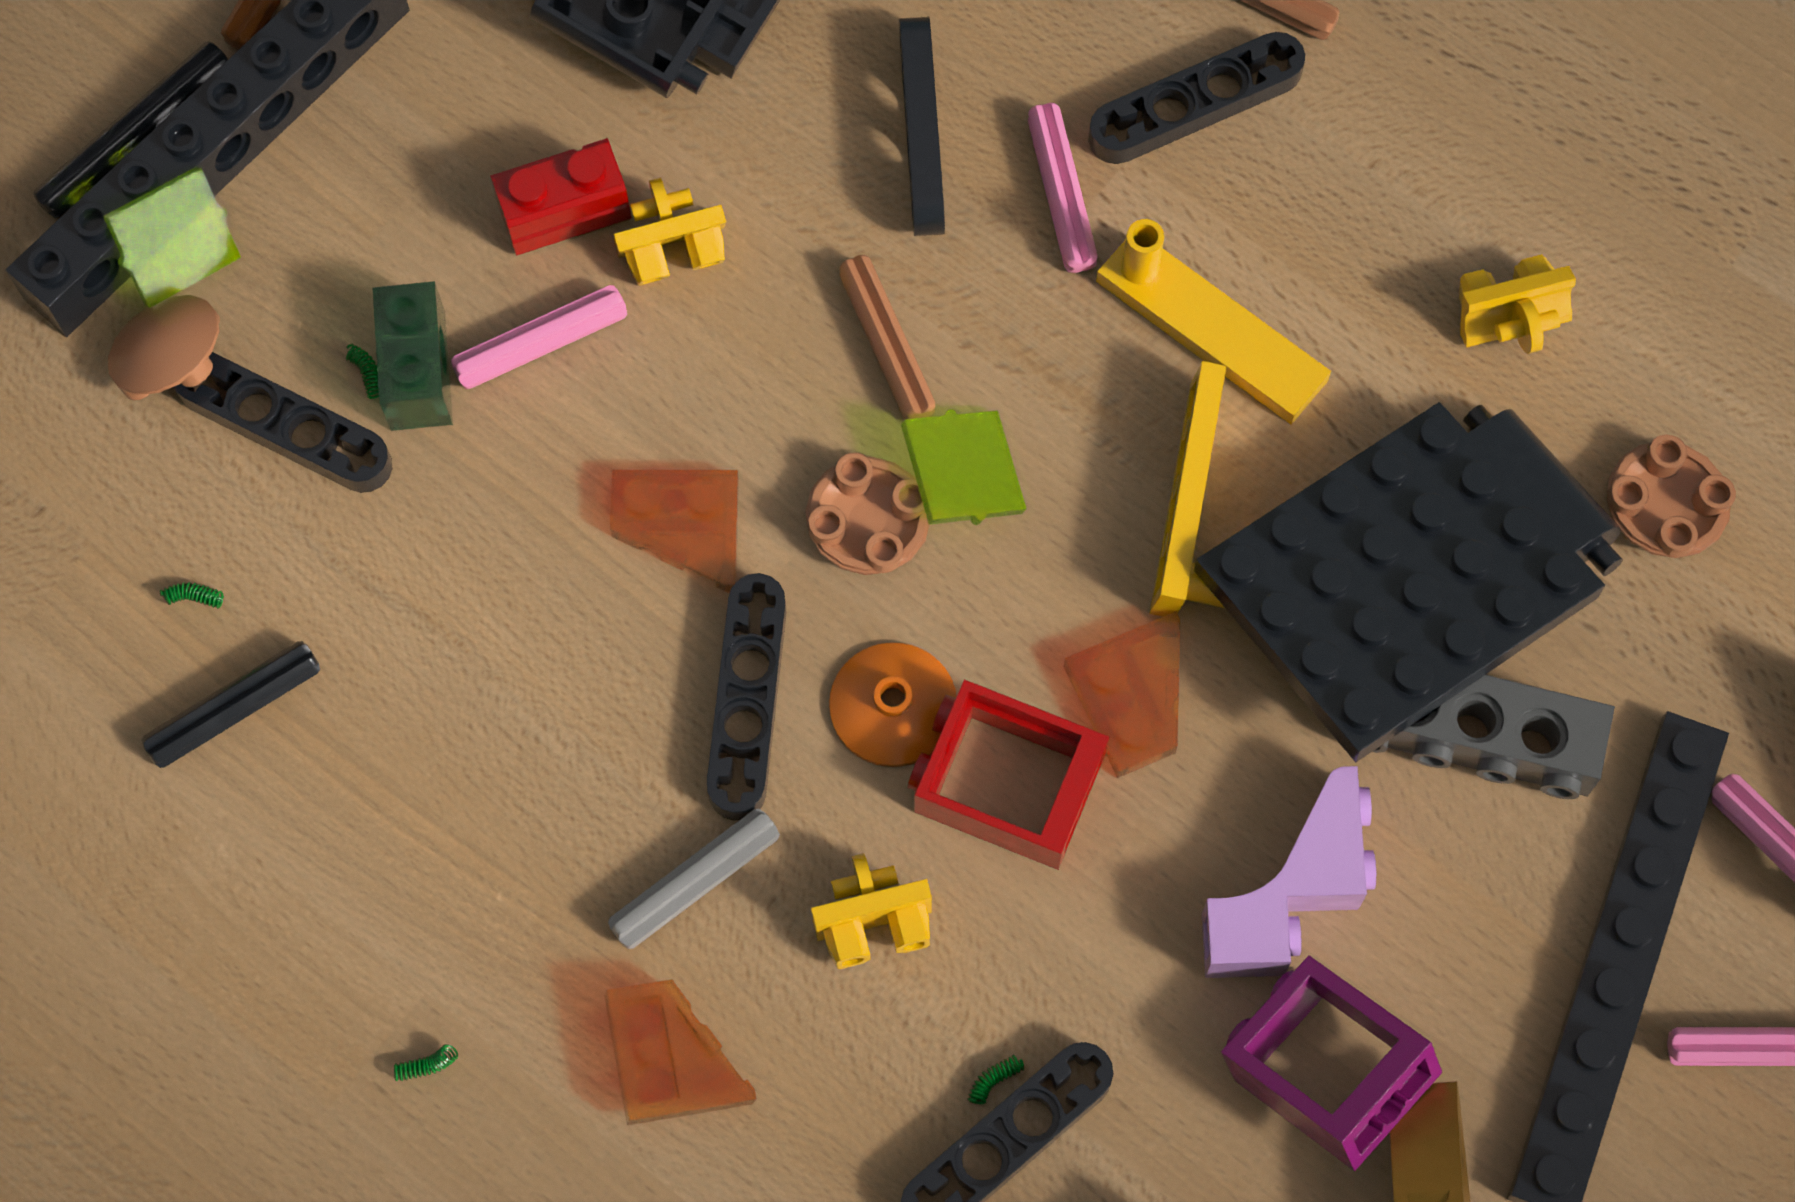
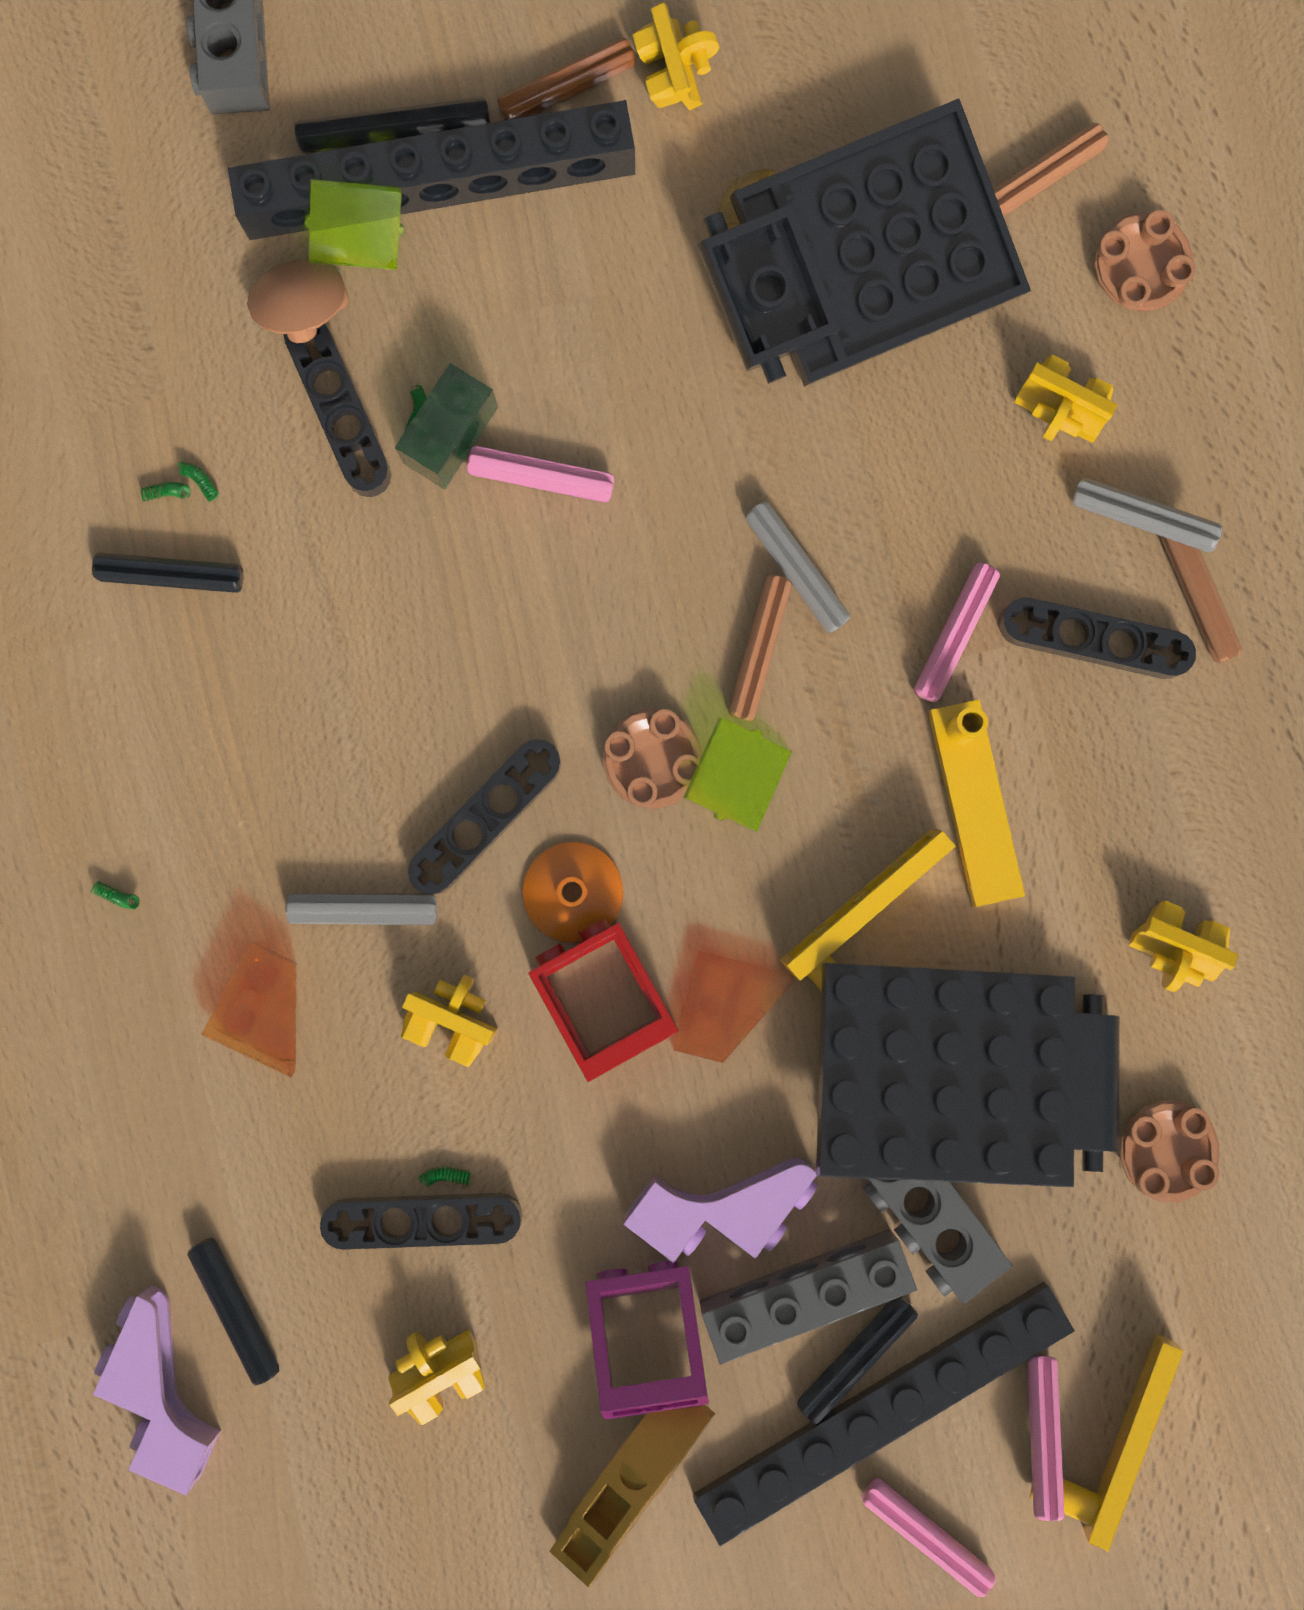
camera: 35 degrees right, 15 degrees up
(175, 623) = (168, 491): none -> green leg
(561, 196) = (624, 388): red brick -> none
(644, 244) = (654, 463): yellow hips -> none
(680, 517) = (535, 667): clear orange wing -> none
(861, 238) = (797, 567): none -> light grey axle
(921, 126) = (899, 518): black beam -> none
(1450, 894) = (806, 1295): none -> dark grey brick
(1550, 929) = (856, 1359): none -> black axle

